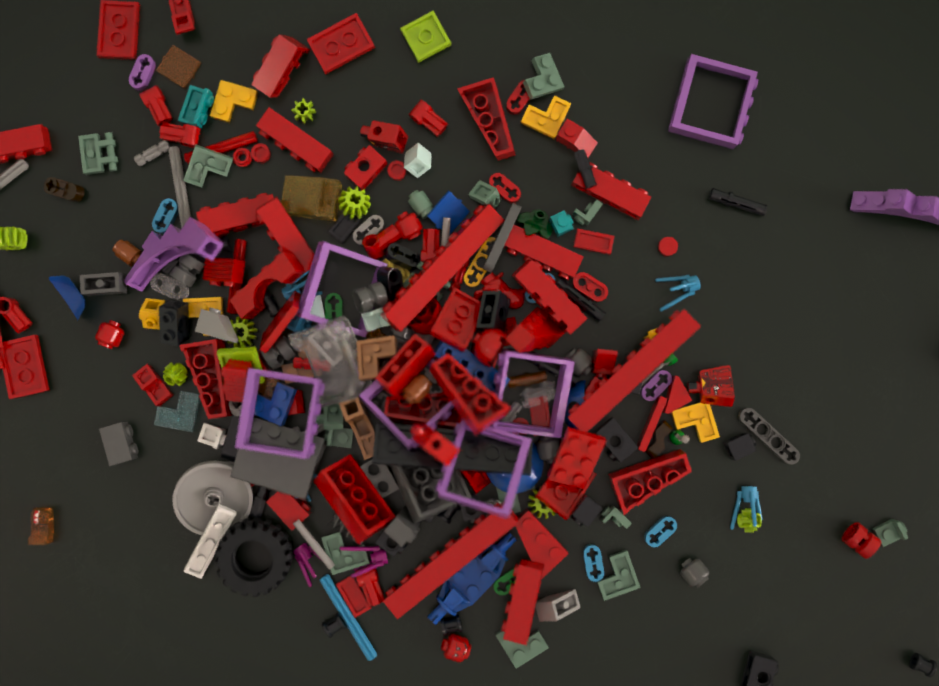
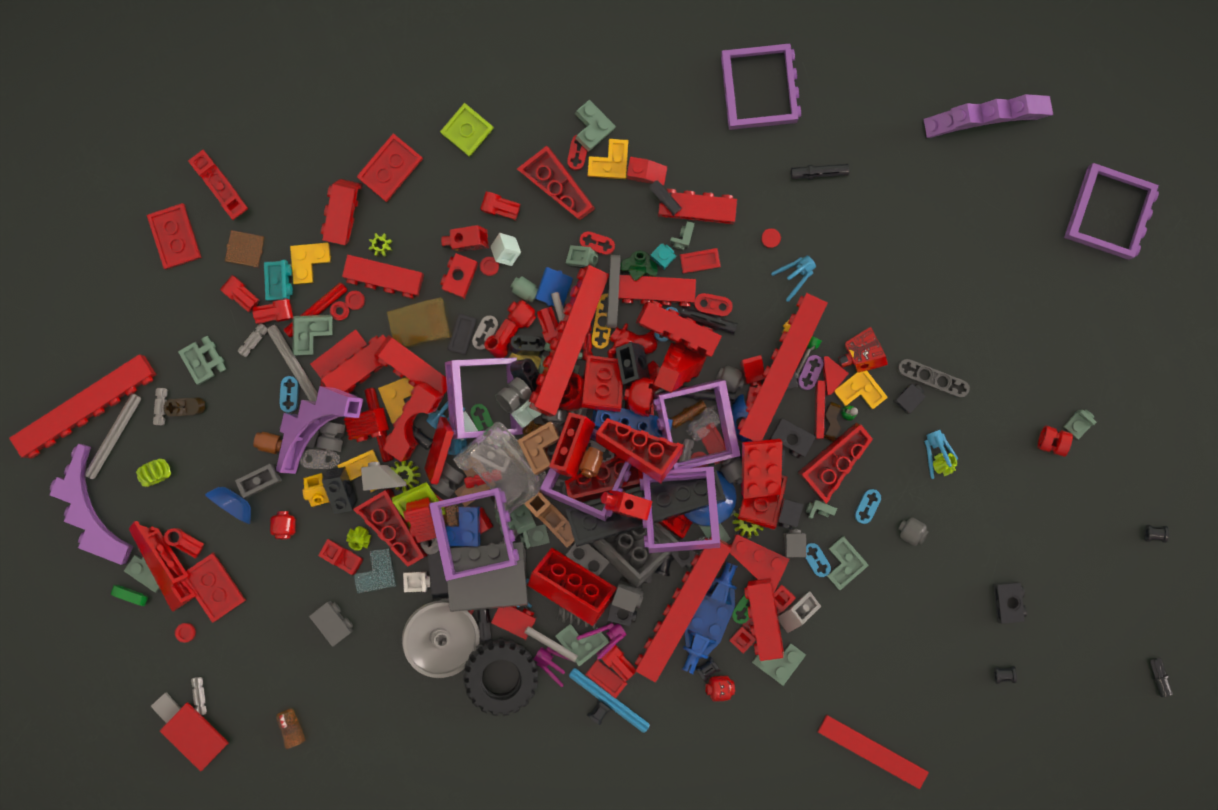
camera: 20 degrees left, 0 degrees up
(48, 169) = (159, 418): none -> light grey axle
(141, 72) = (218, 267): medium lavender beam -> none
(209, 541) = (453, 680): white tile -> none
(226, 194) = (340, 351): none -> red tile
(261, 255) = (394, 395): none -> yellow plate
(354, 202) = (462, 318): lime gear -> none
(496, 607) = (743, 636): none -> red slope
(578, 541) = (794, 543): none -> dark grey brick

